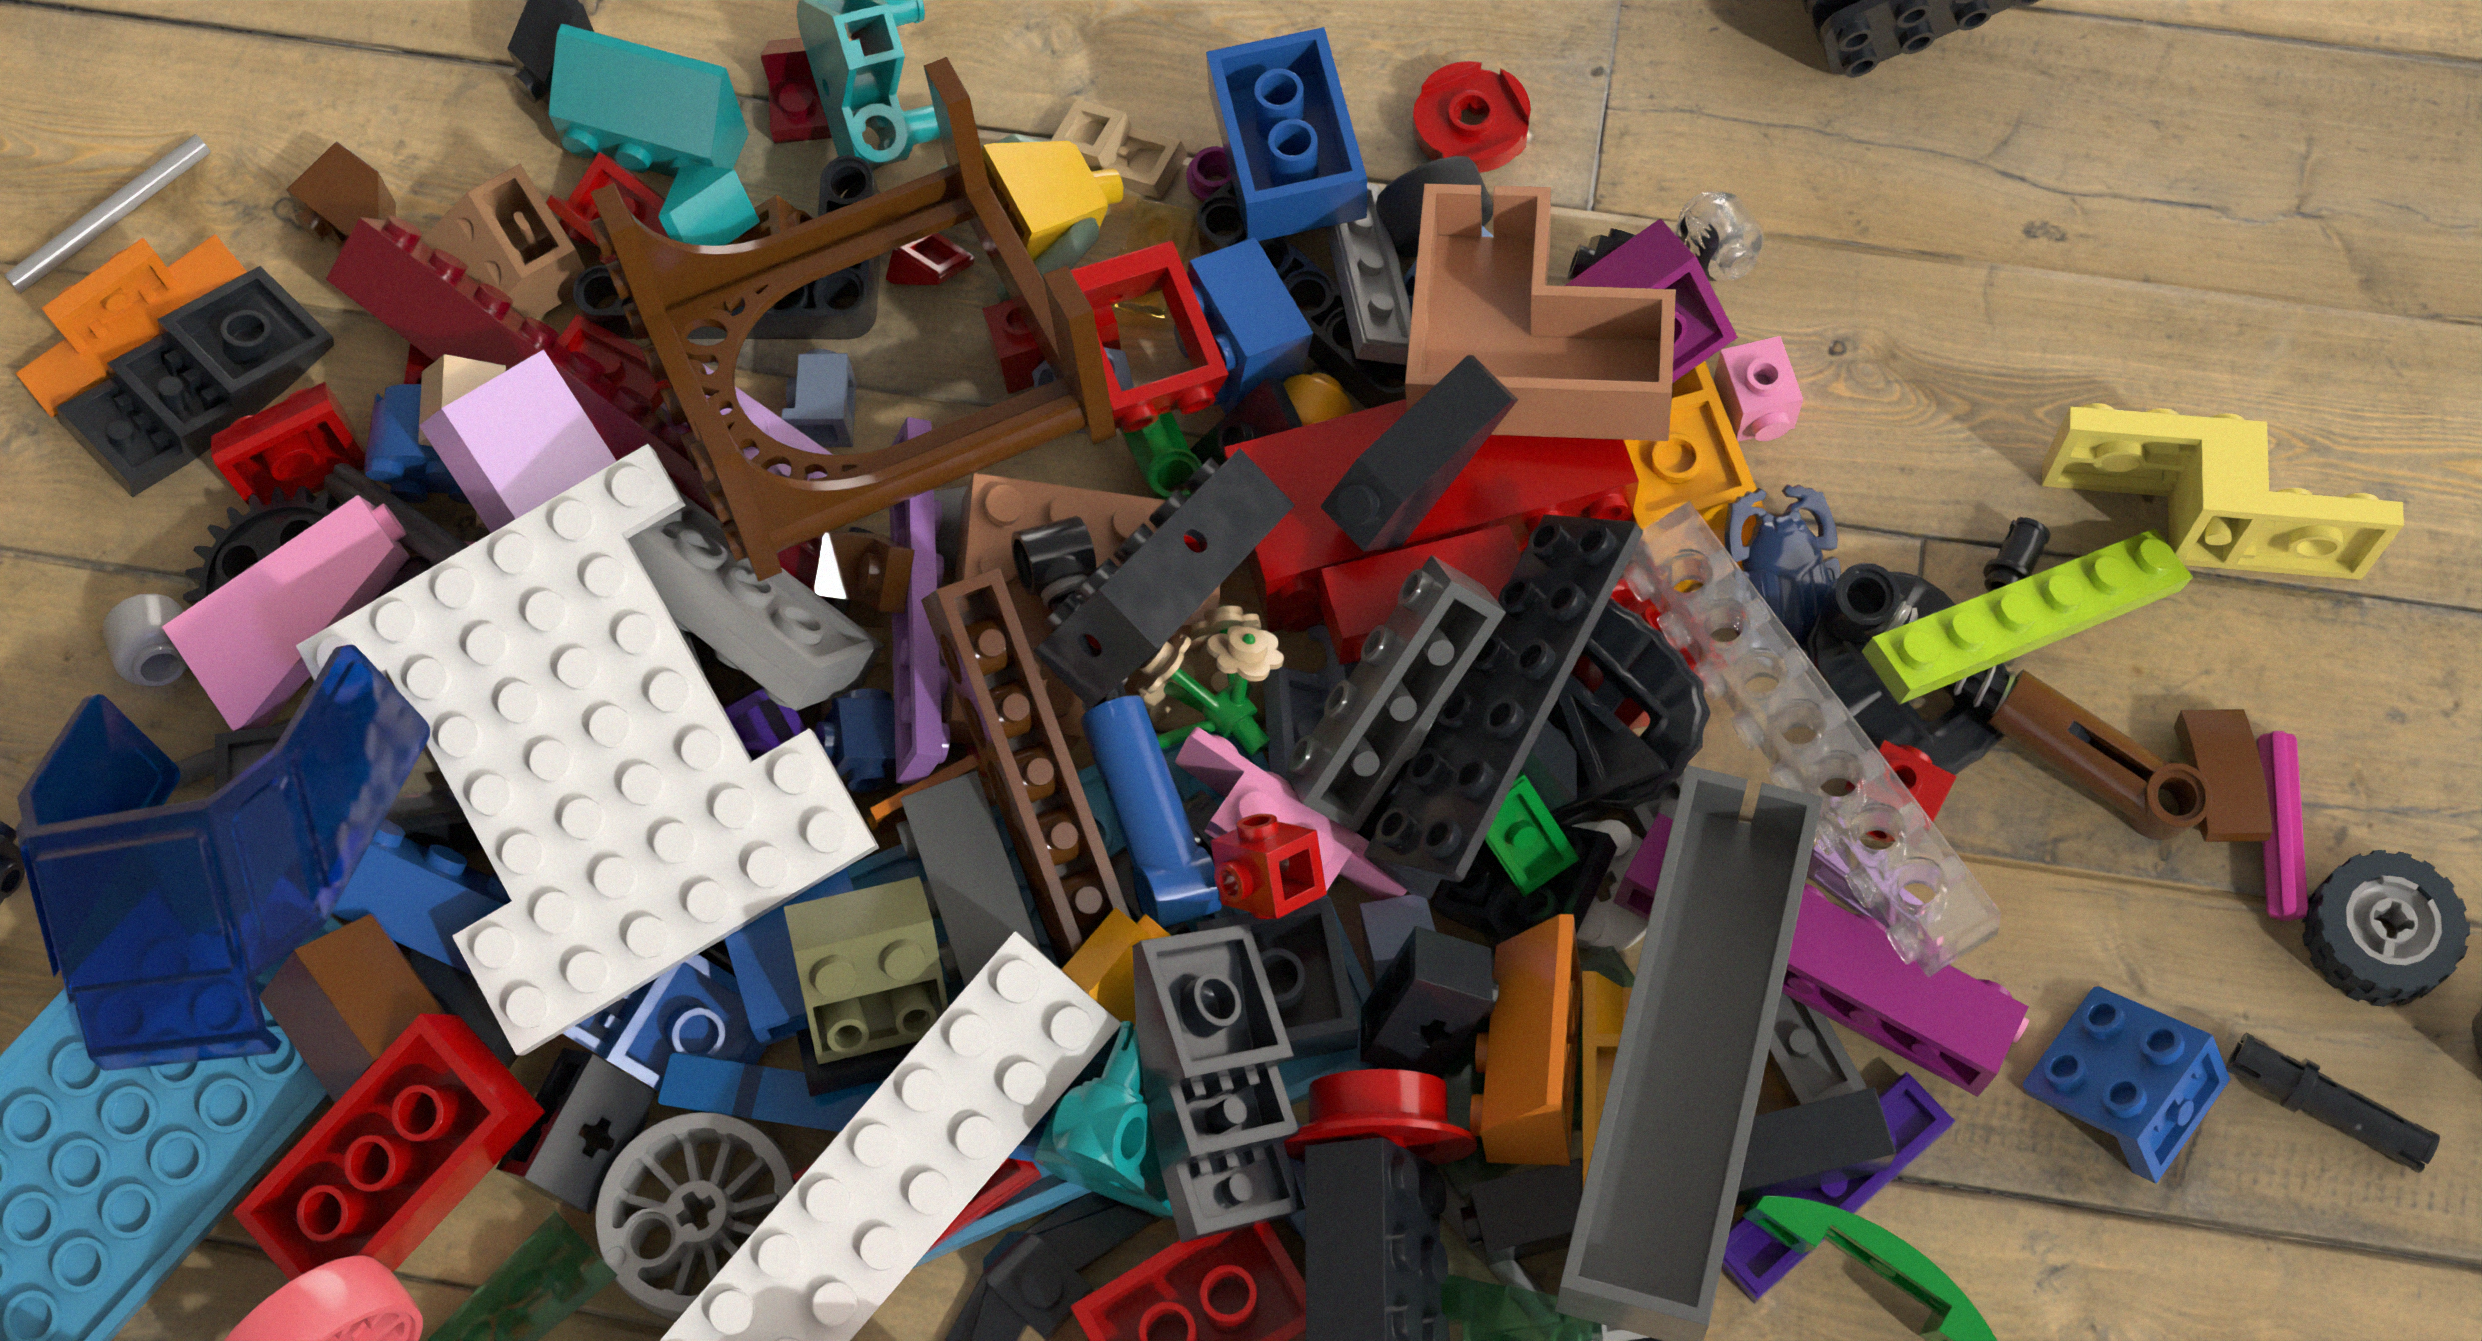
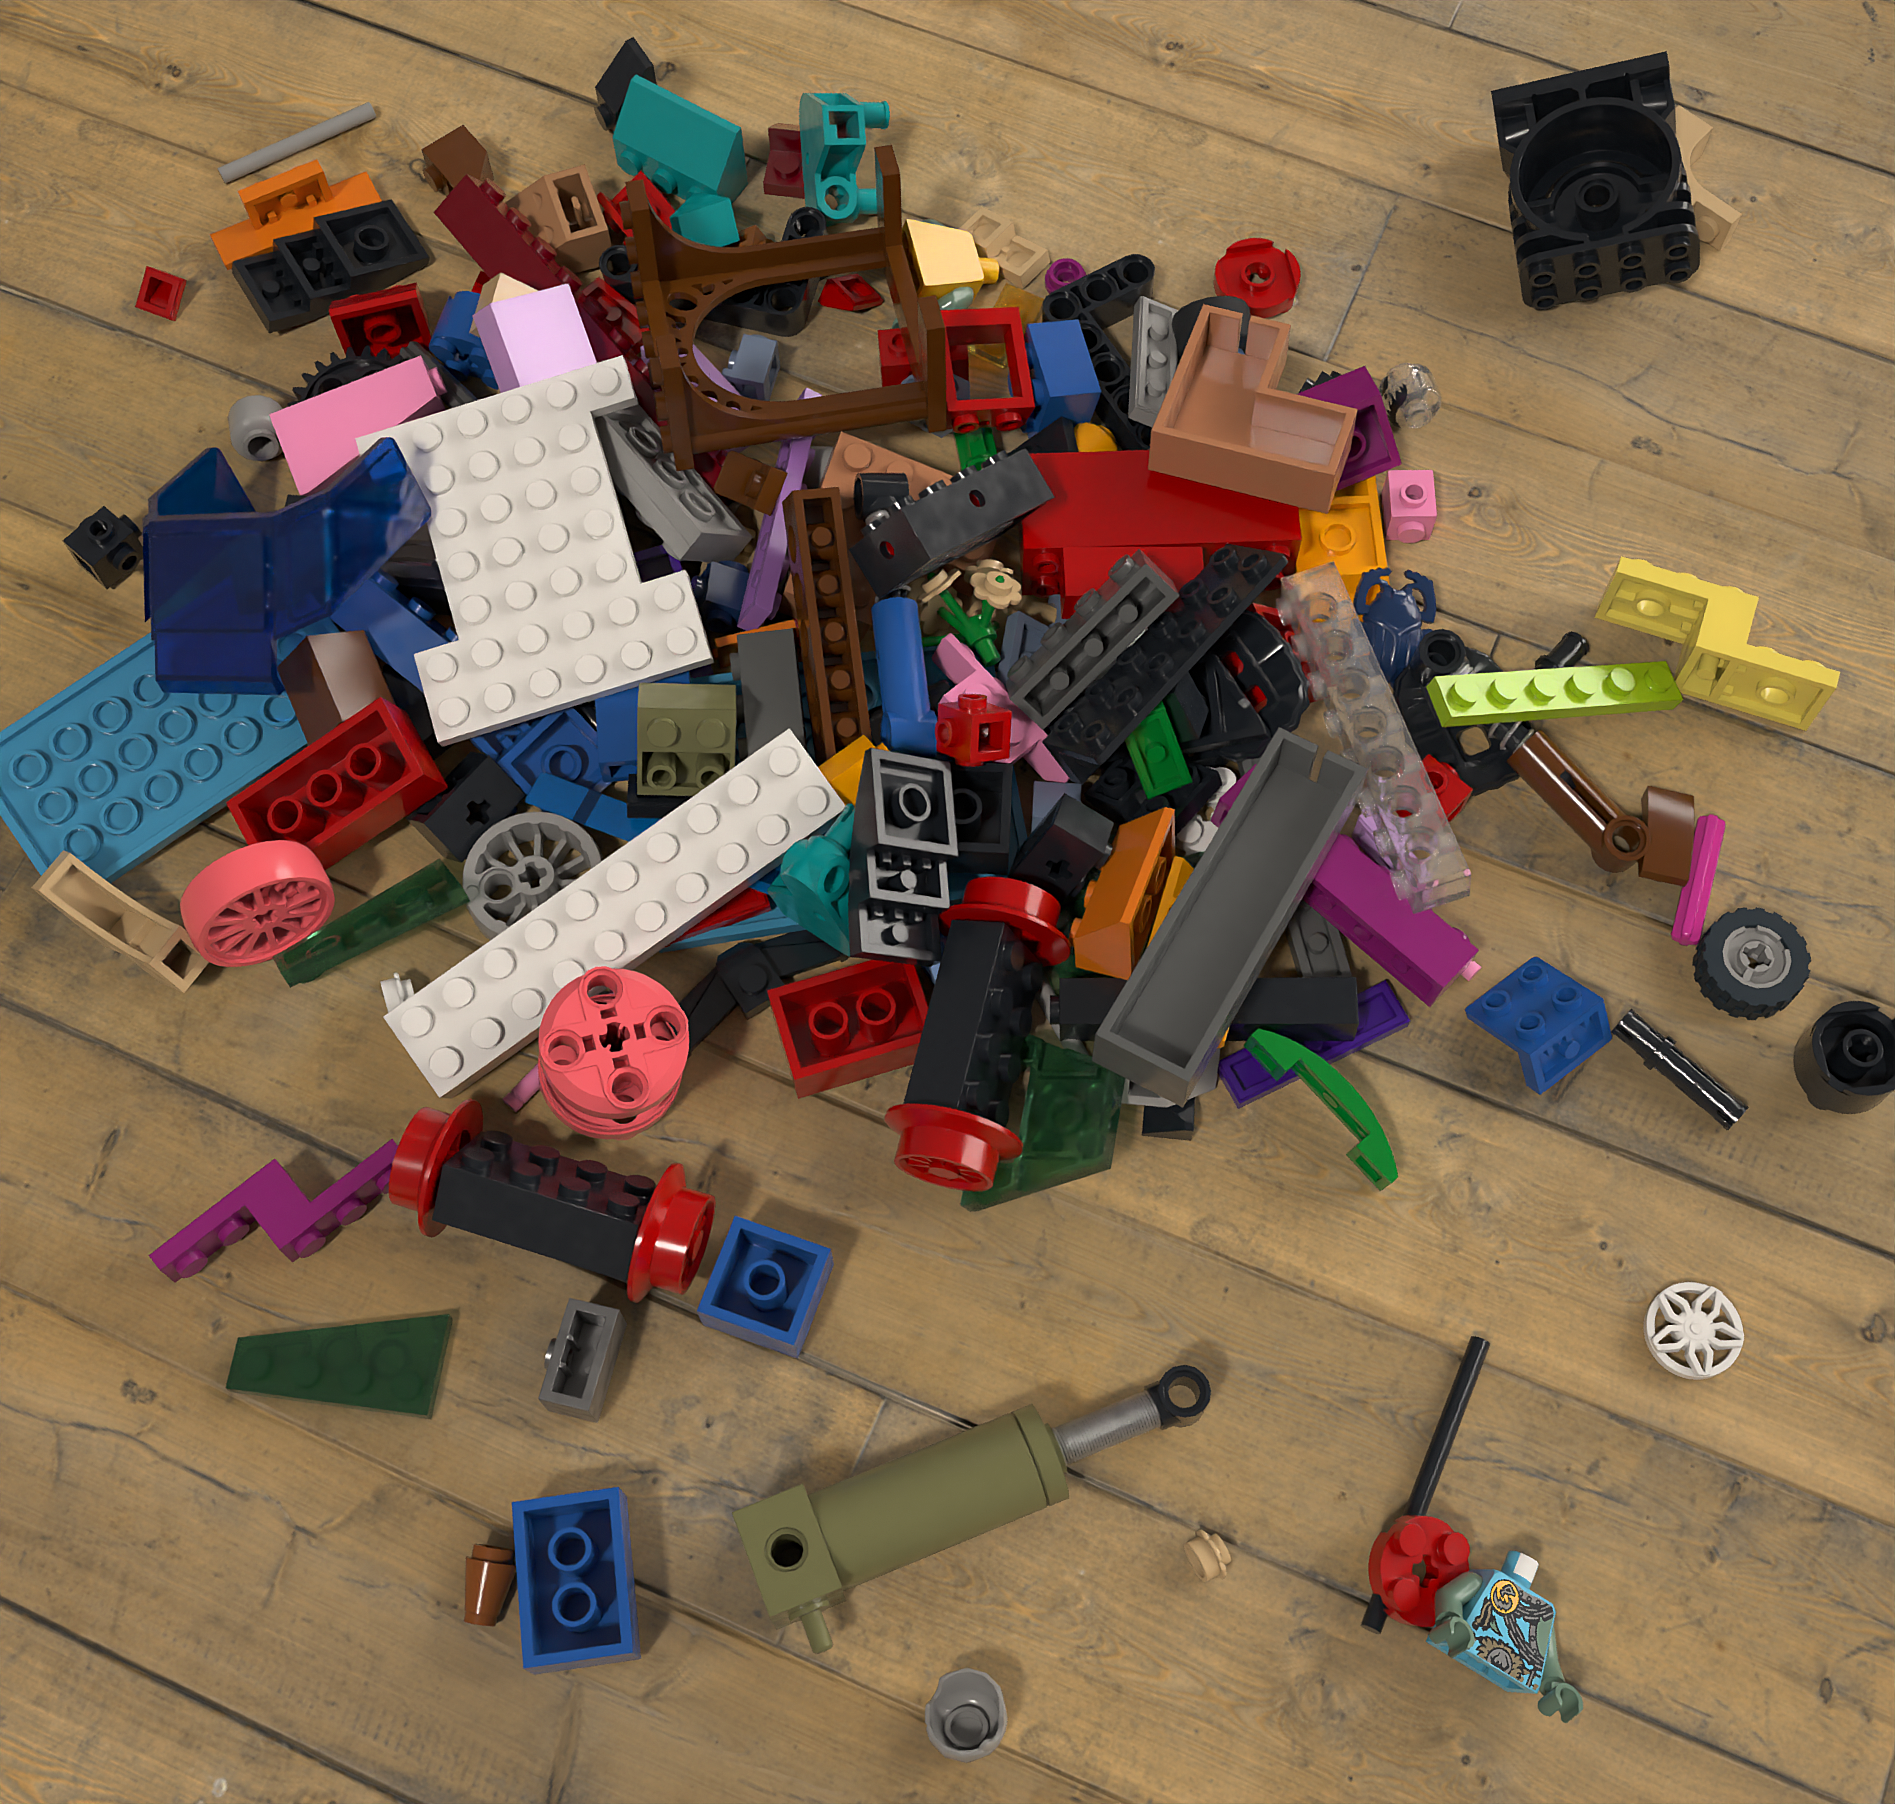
camera: 10 degrees right, 0 degrees up
(1287, 134) = (1119, 256): blue brick -> none
(1418, 457) = (1147, 483): black slope -> none

